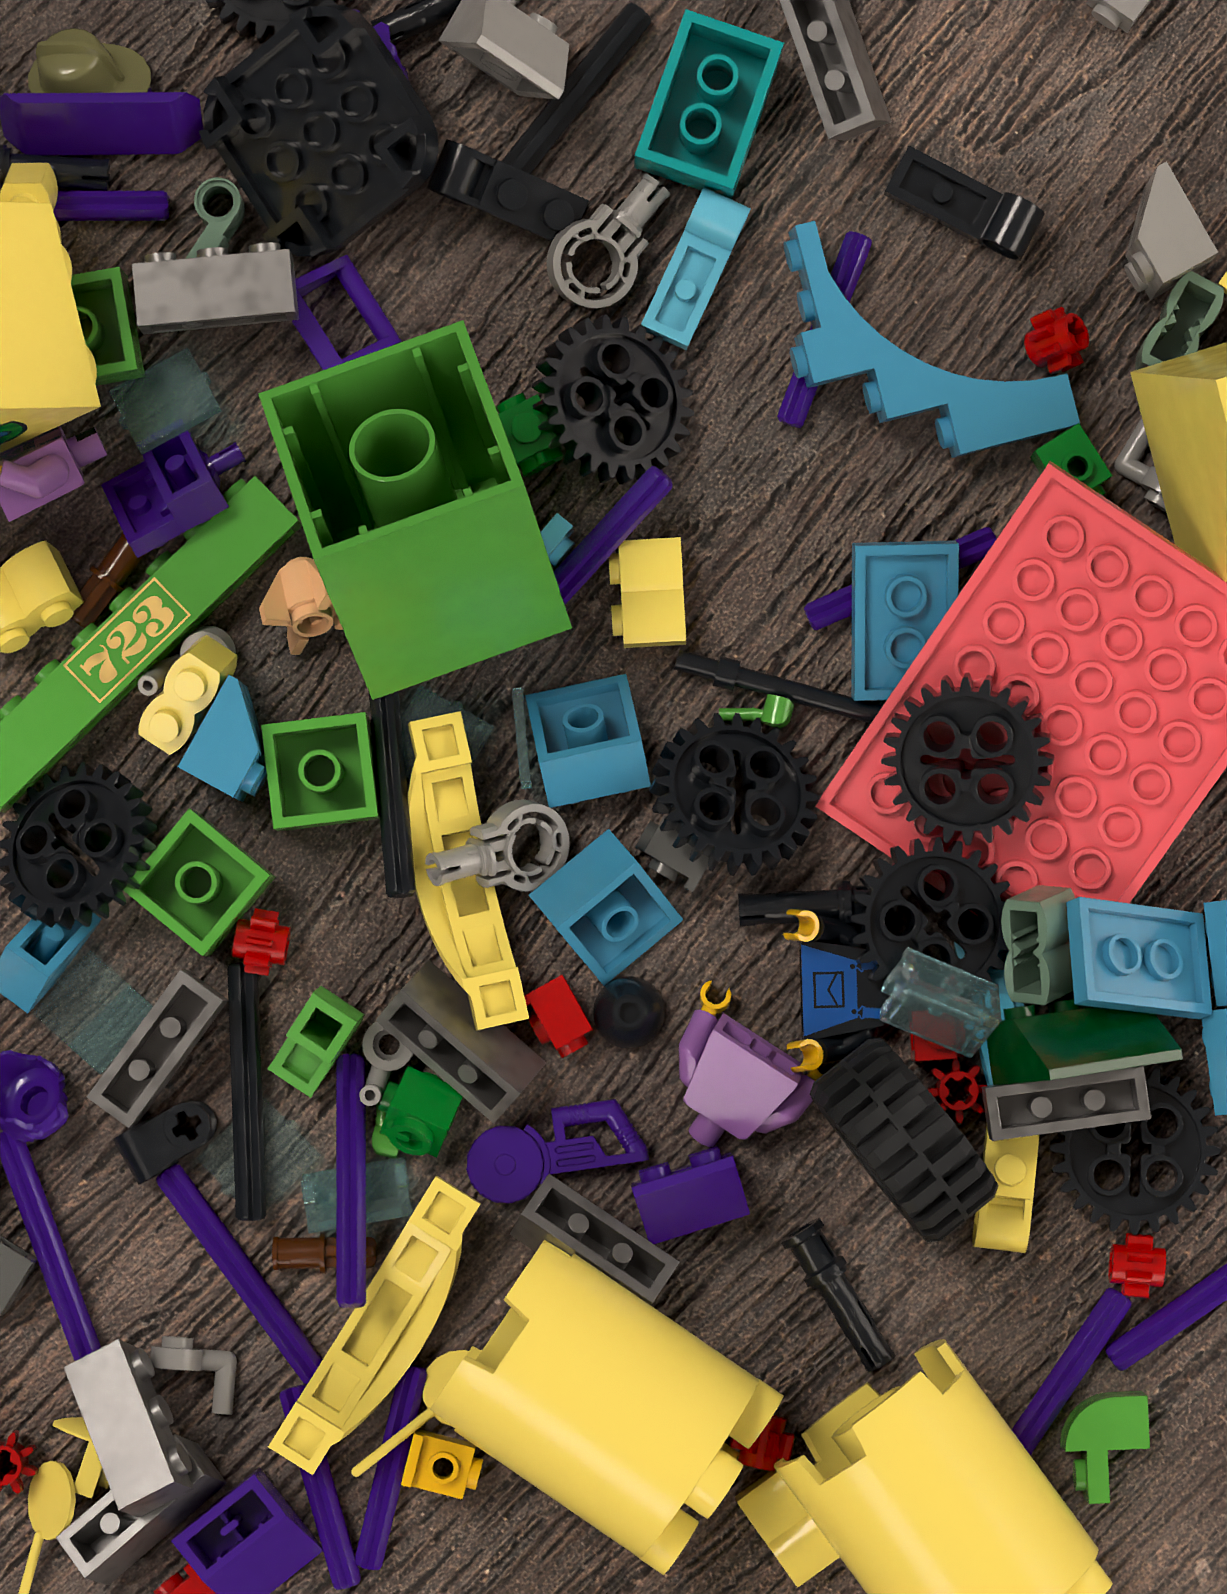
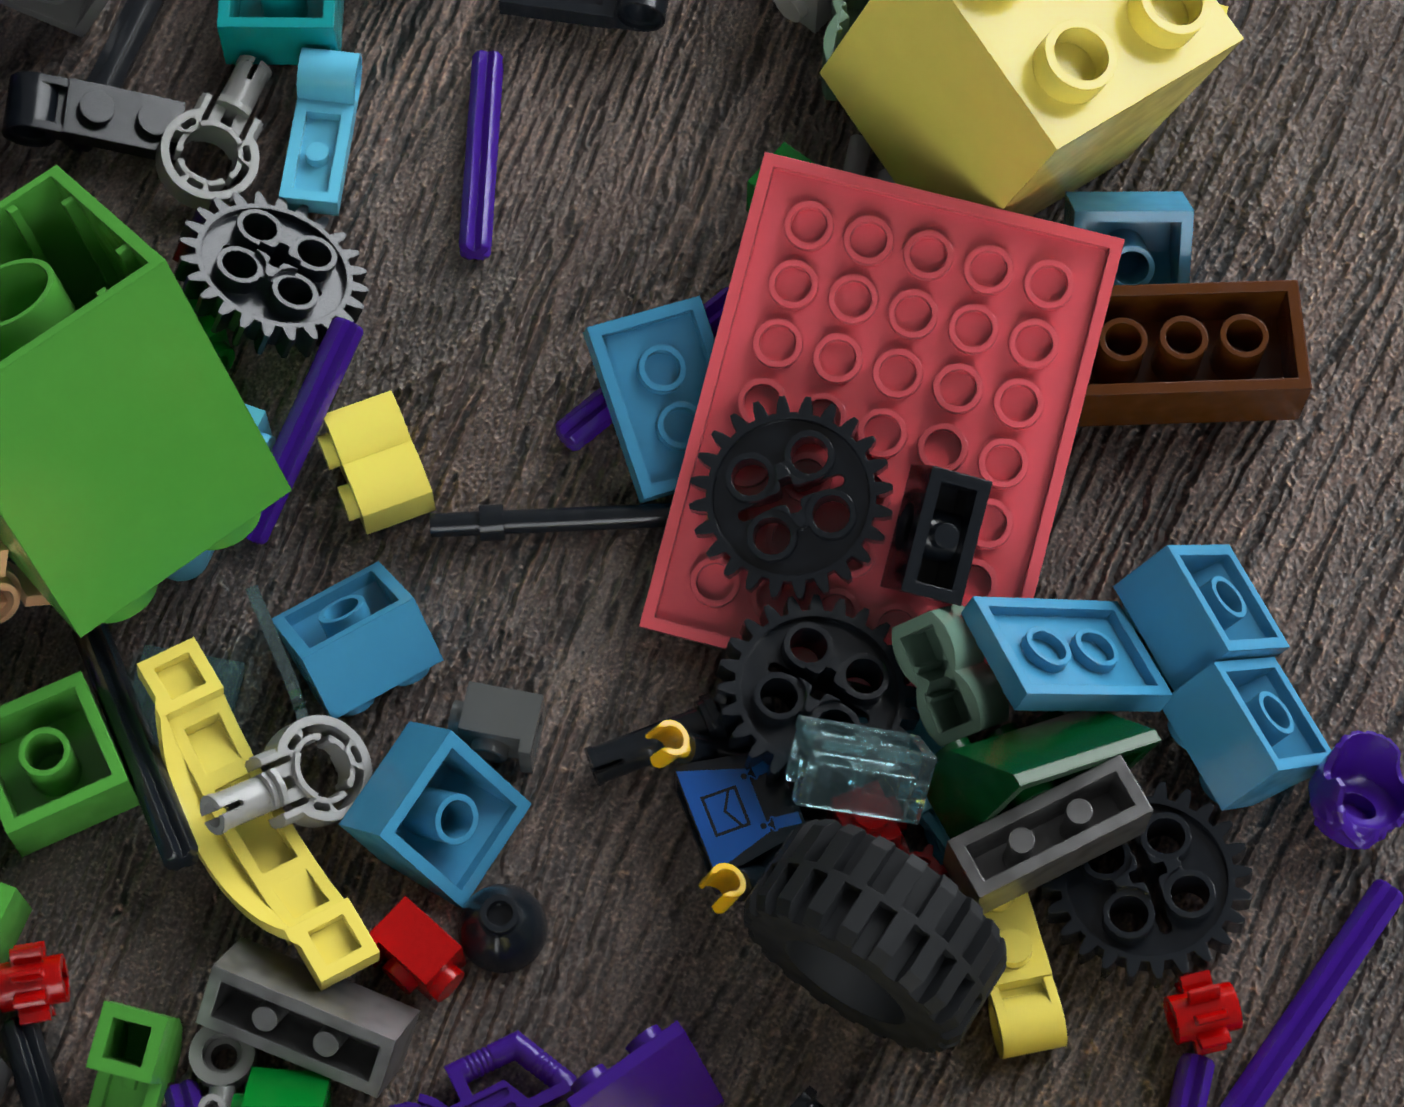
camera: 25 degrees left, 20 degrees down
(737, 1077) = (654, 949): medium lavender torso -> none
(775, 713) = (561, 551): bright green hand -> none
(779, 799) = (503, 647): black gear -> none
(843, 345) = (506, 148): dark azure arch -> none
(1056, 340) = (731, 85): red gear -> none
(1069, 834) = (936, 534): none -> black brick

